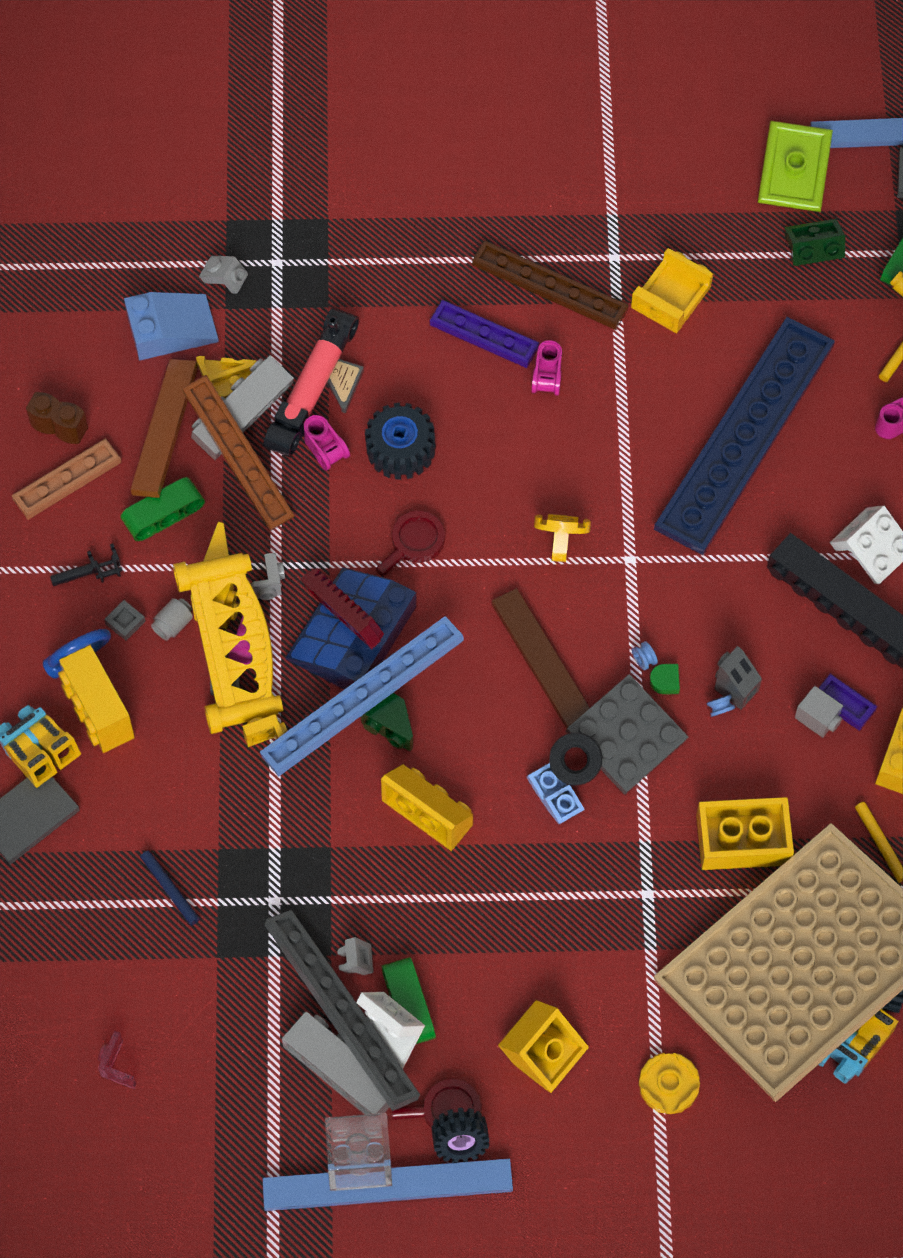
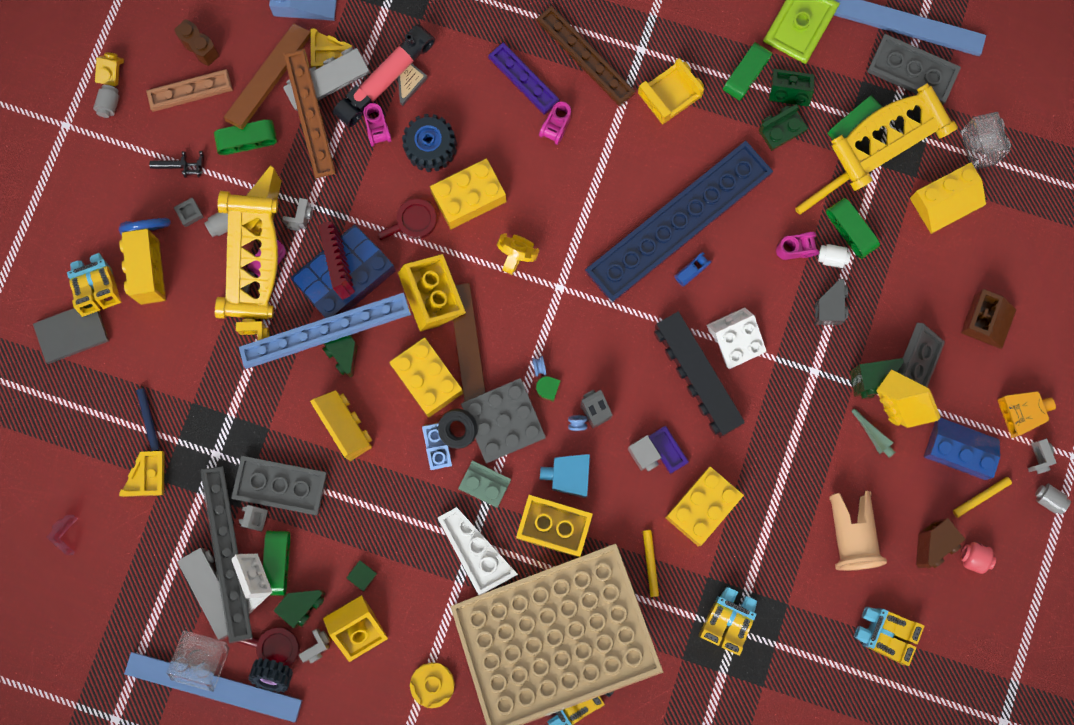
camera: 20 degrees right, 15 degrees up
(195, 955) = (146, 476): none -> yellow wing
(374, 907) = (279, 485): none -> dark grey plate
(458, 1043) = (297, 606): none -> dark green slope
(473, 484) = (468, 193): none -> yellow brick
(475, 610) = (431, 292): none -> yellow slope
(503, 1093) = (314, 653): none -> light grey bracket
(510, 714) = (426, 377): none -> yellow brick
(524, 981) = (361, 575): none -> dark green tile
(634, 819) = (484, 484): none -> sand green plate
(666, 909) = (479, 558): none -> white wing
(736, 770) = (568, 475): none -> dark azure torso
(754, 240) = (747, 71): none -> green beam
(784, 486) = (691, 271): none -> blue bar
(823, 289) = (782, 127): none -> dark green bracket

